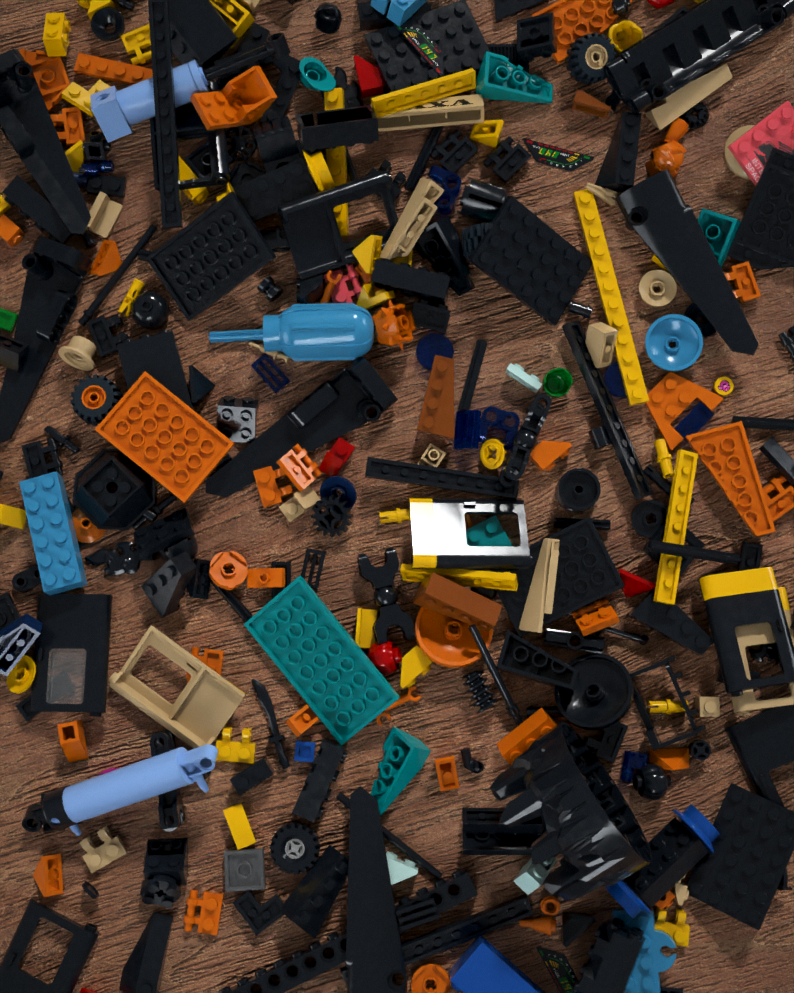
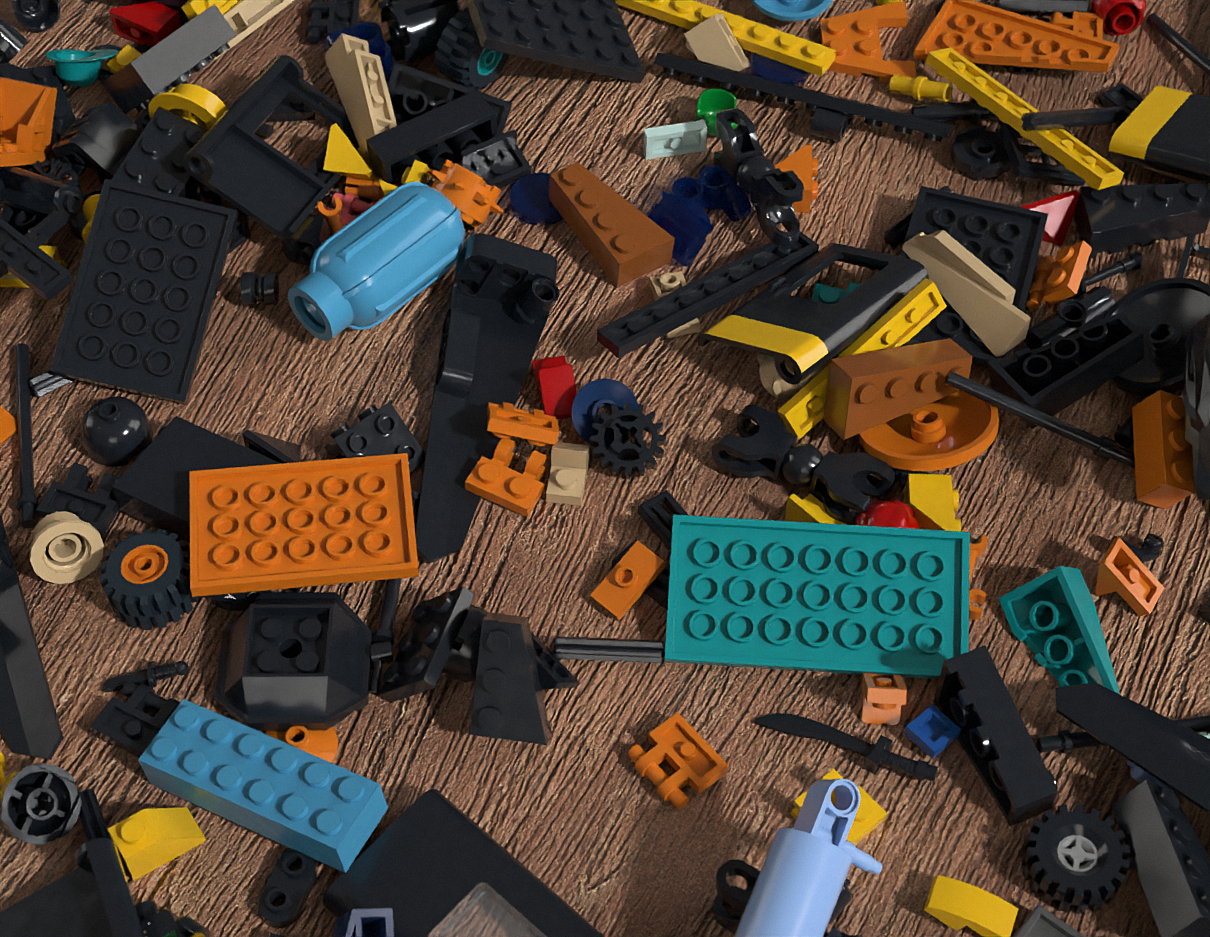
camera: 50 degrees left, 30 degrees down
(118, 564) = (413, 736): black piece -> none
(136, 286) = (71, 436): yellow pin -> none
(200, 708) = (728, 798): tan piece -> none
(227, 560) = (583, 618): orange plate -> none
(236, 335) = (272, 367): dark azure axle -> none
(252, 776) = (907, 825): black brick -> none
(276, 354) = (335, 349): tan piece -> none
(280, 385) = (360, 377): clear blue tile -> none
(395, 516) = (706, 377): yellow pin -> none
(423, 158) = (302, 48): black axle -> none
(472, 375) = (605, 173): black axle -> none
(480, 690) = (1042, 460): black piece -> none
(487, 451) = (727, 216): yellow gear -> none
(580, 309) = (654, 42): black pin -> none
(587, 483) = (874, 181): black wheel -> none
(694, 420) = (902, 40): clear blue tile -> none

